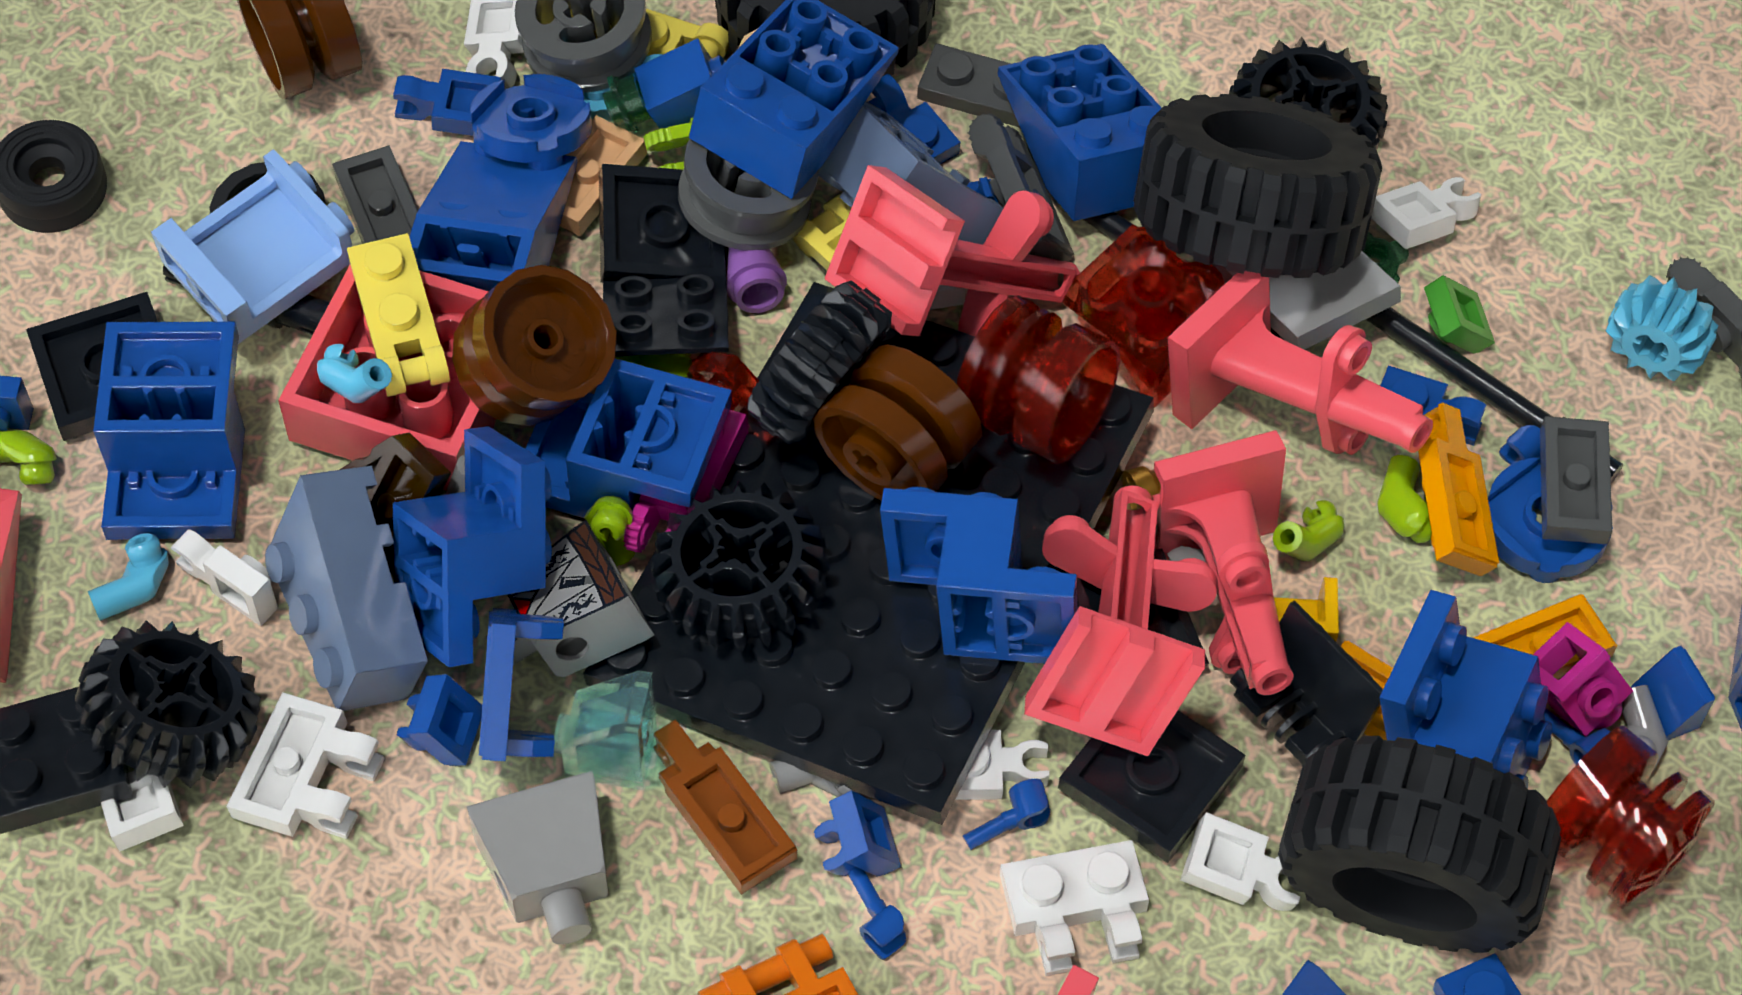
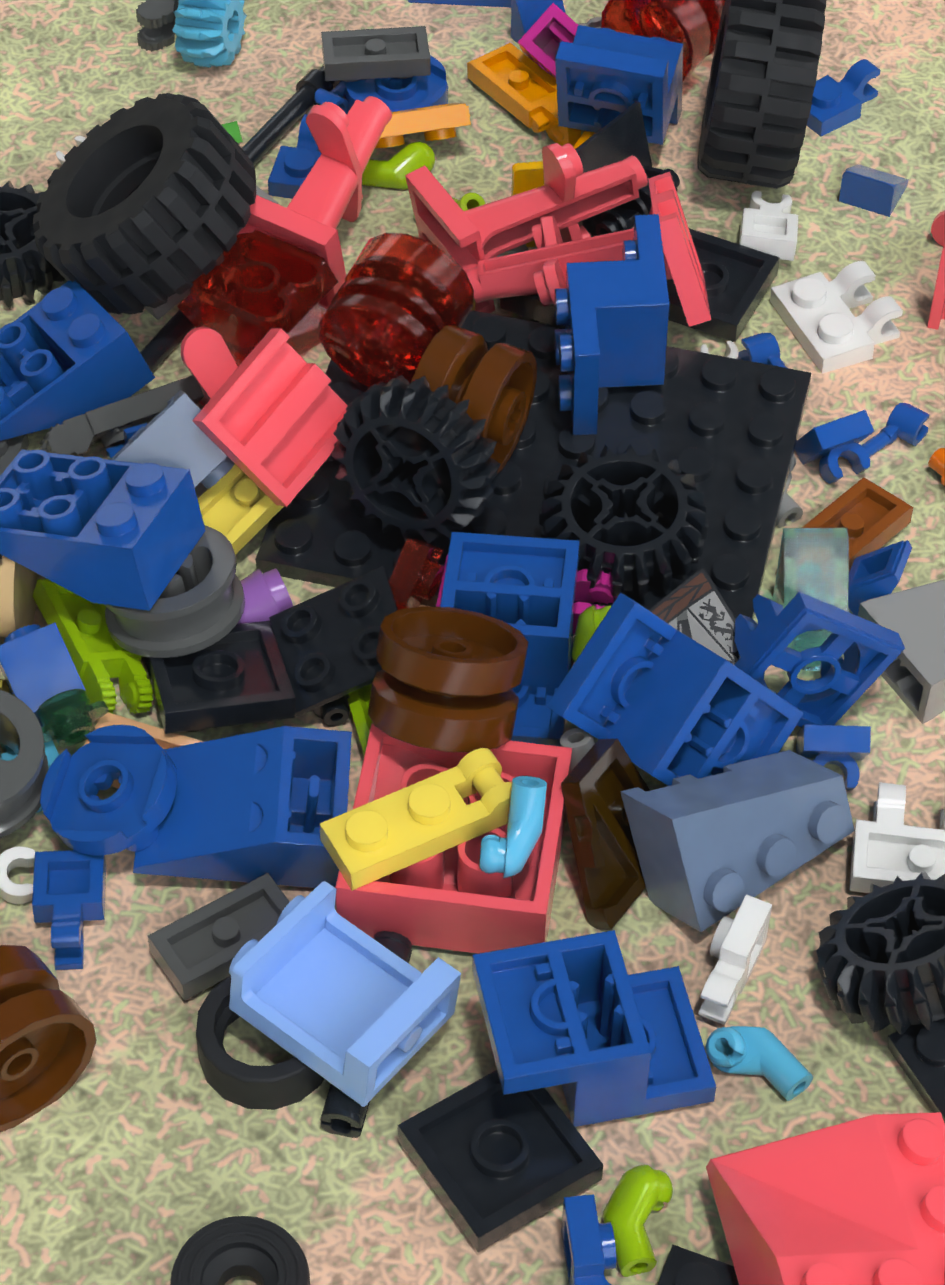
camera: 100 degrees left, 10 degrees down
(639, 805) = (876, 573): none -> blue slope

